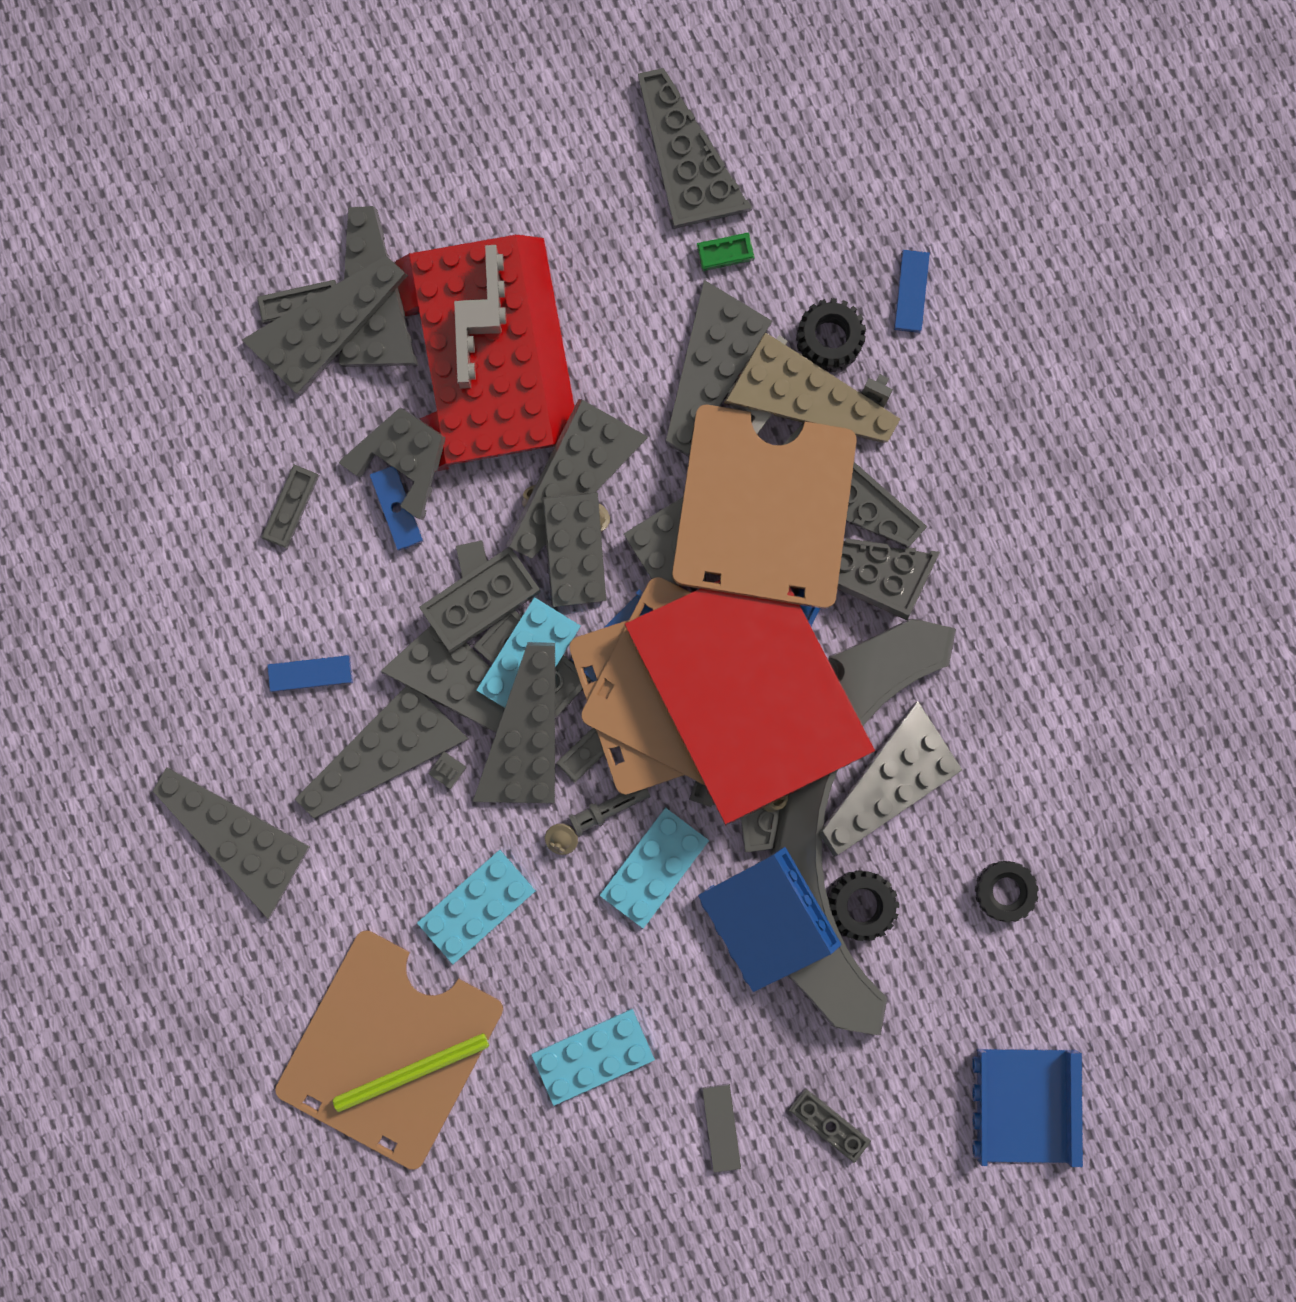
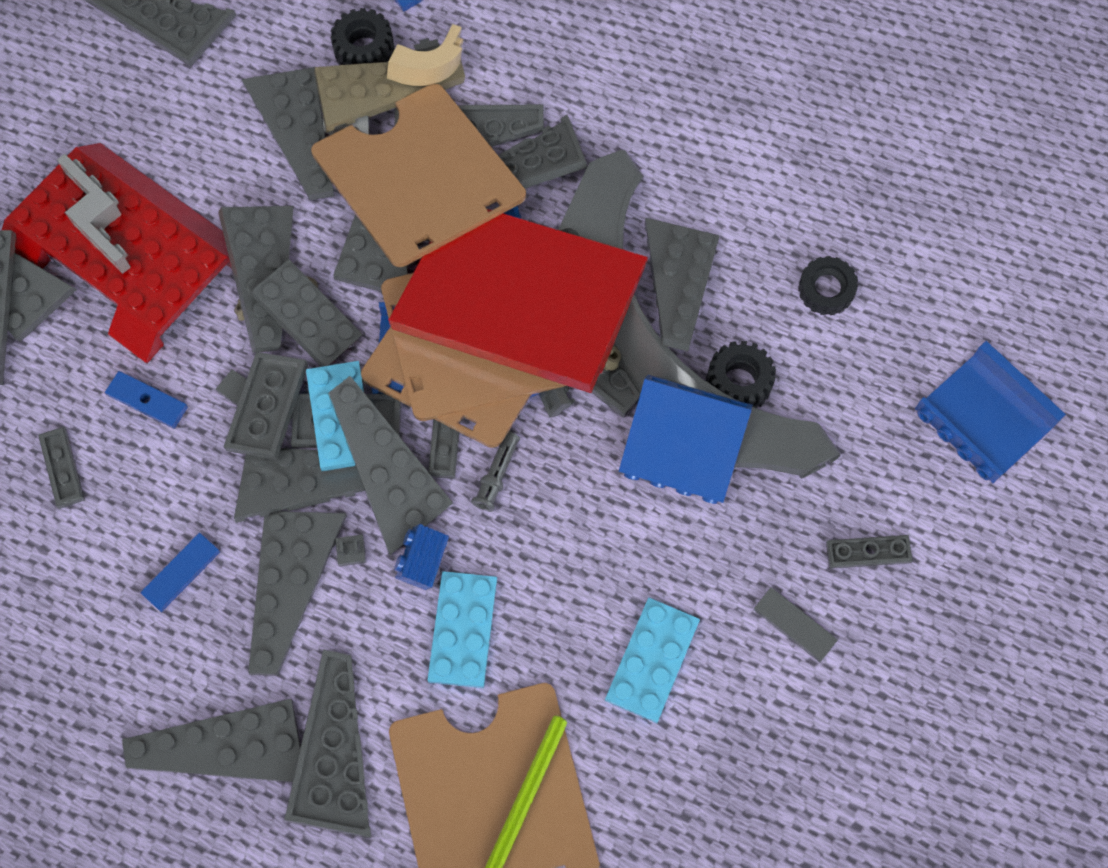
camera: 40 degrees left, 15 degrees down
(292, 924) = (329, 767): none -> dark grey wing
(409, 448) = (116, 347): dark grey wing -> none
(492, 826) = (421, 556): none -> blue brick
(561, 839) = (481, 522): dark tan hat -> none
(654, 868) = (569, 486): medium azure plate -> none
(725, 251) = (240, 51): green plate -> none
(857, 415) = (426, 67): none -> tan arch

